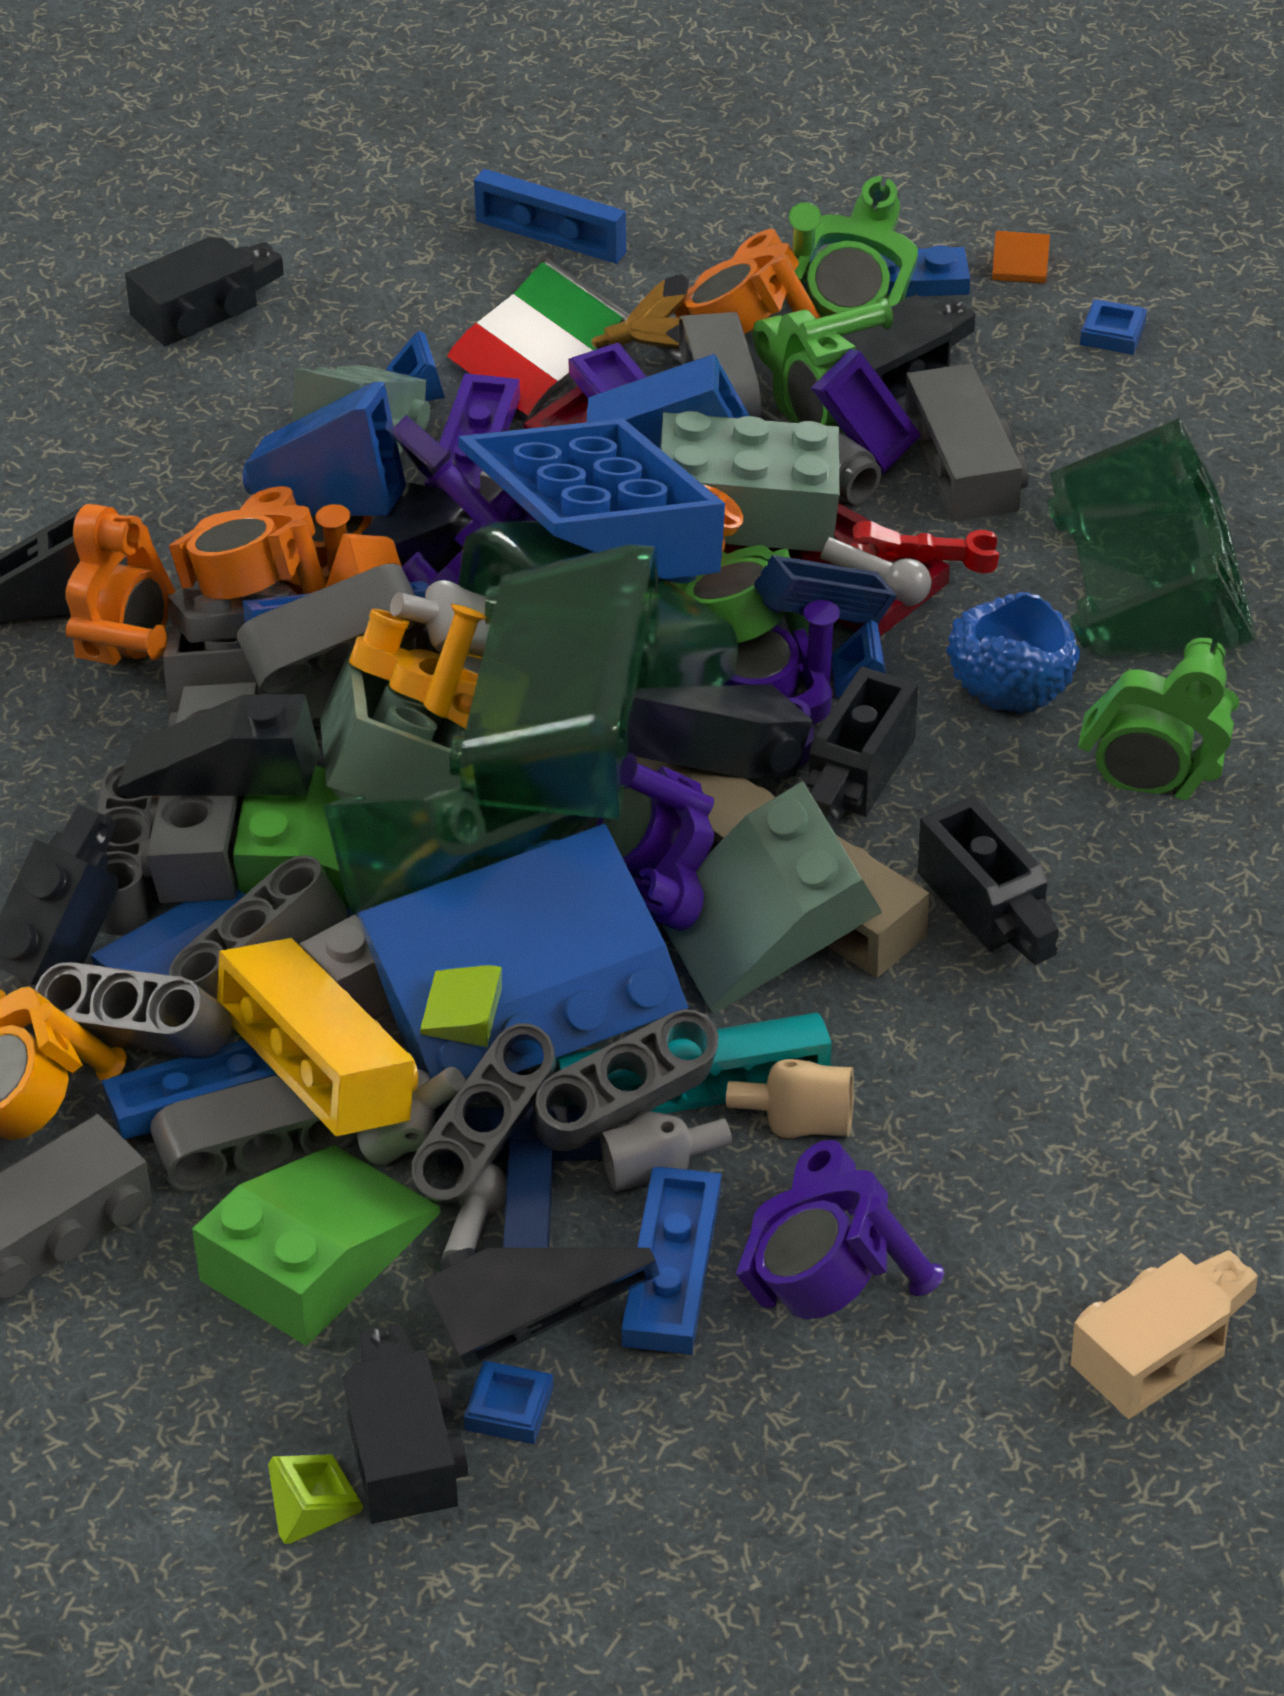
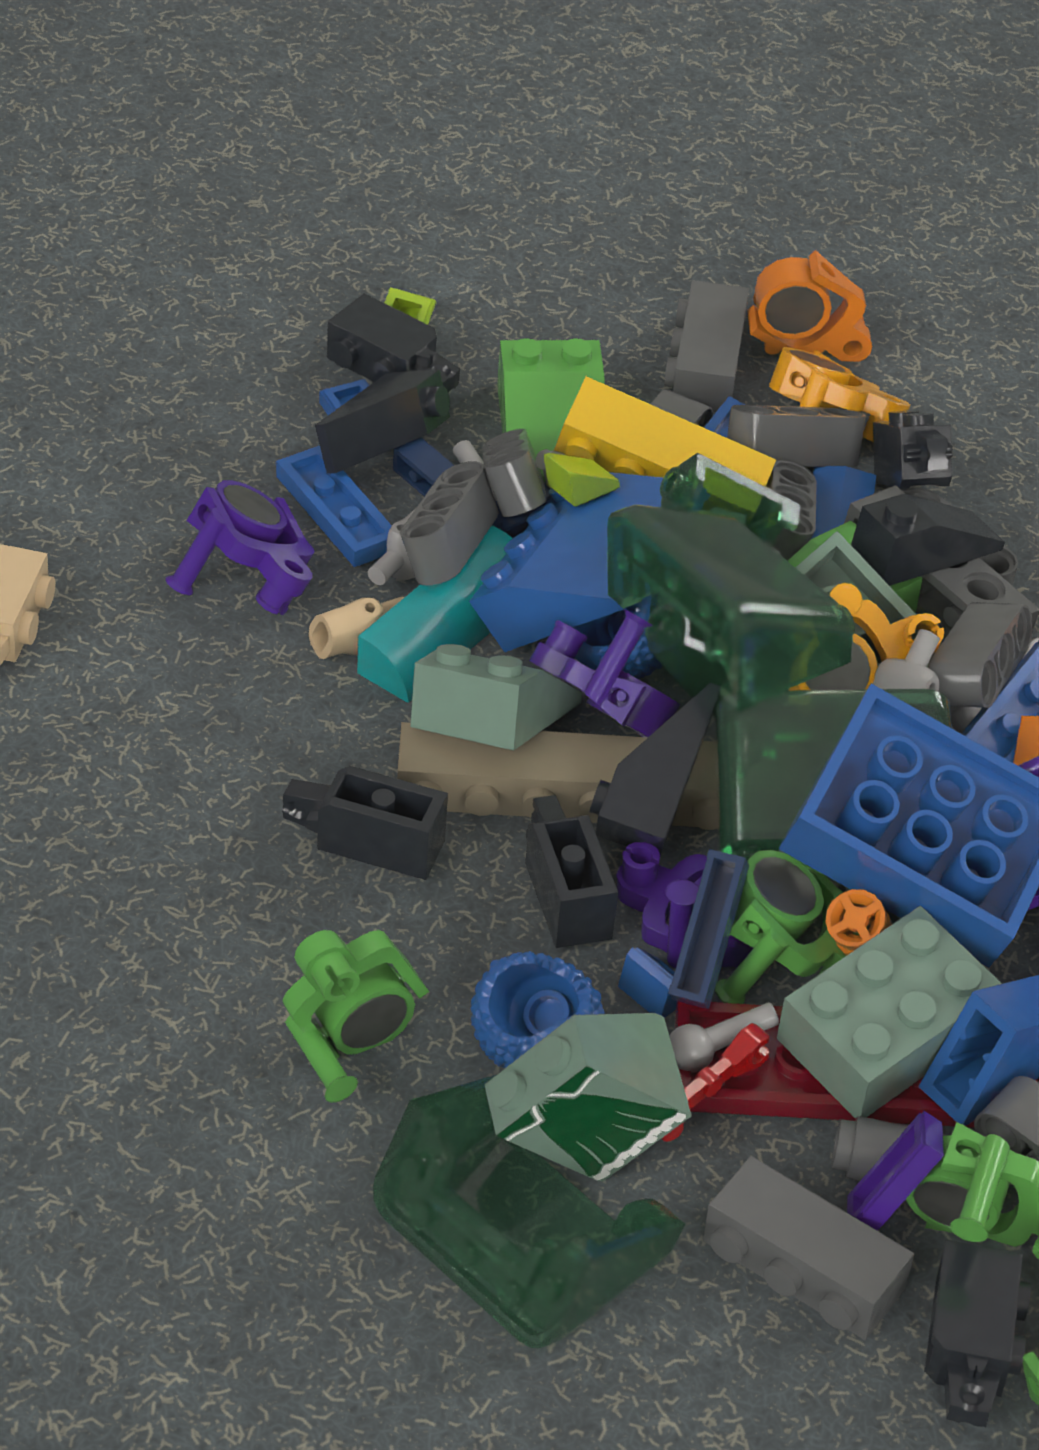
camera: 135 degrees right, 0 degrees up
(1050, 535) = (592, 1092): none -> sand green slope

